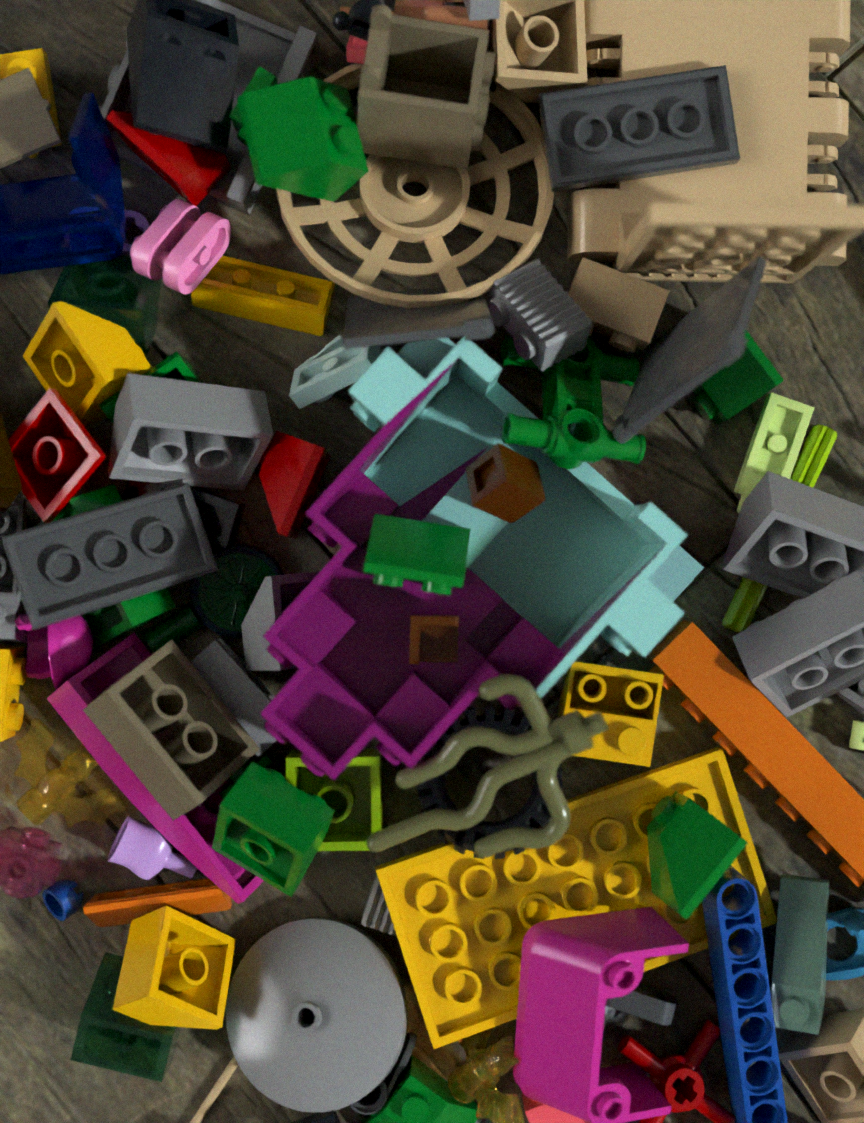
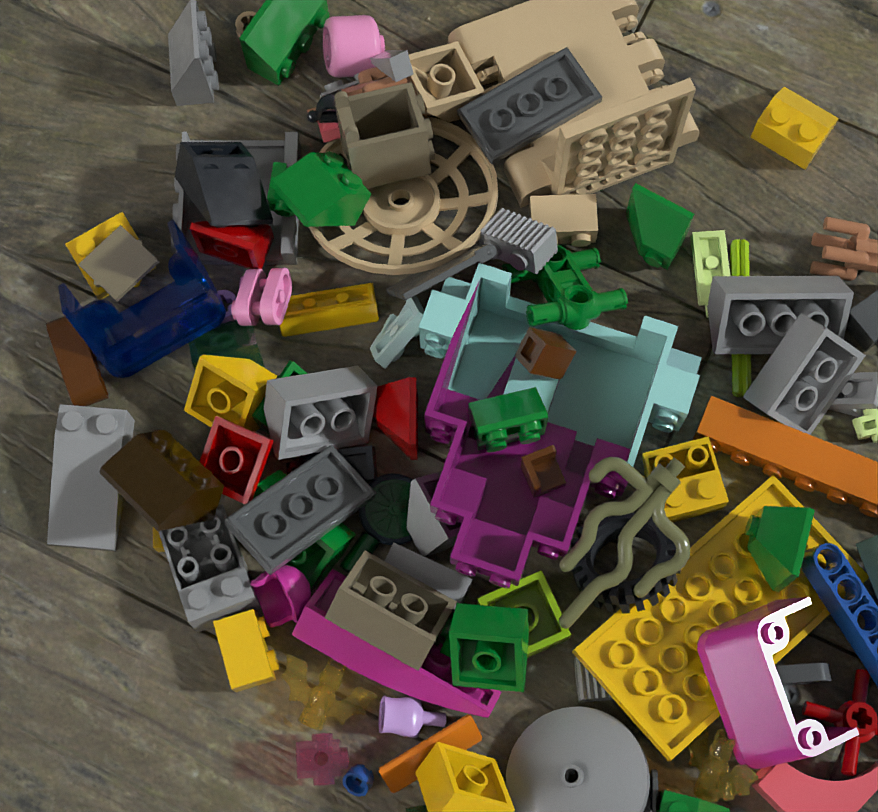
camera: 20 degrees left, 15 degrees down
(692, 351) = (626, 219): dark grey piece -> none

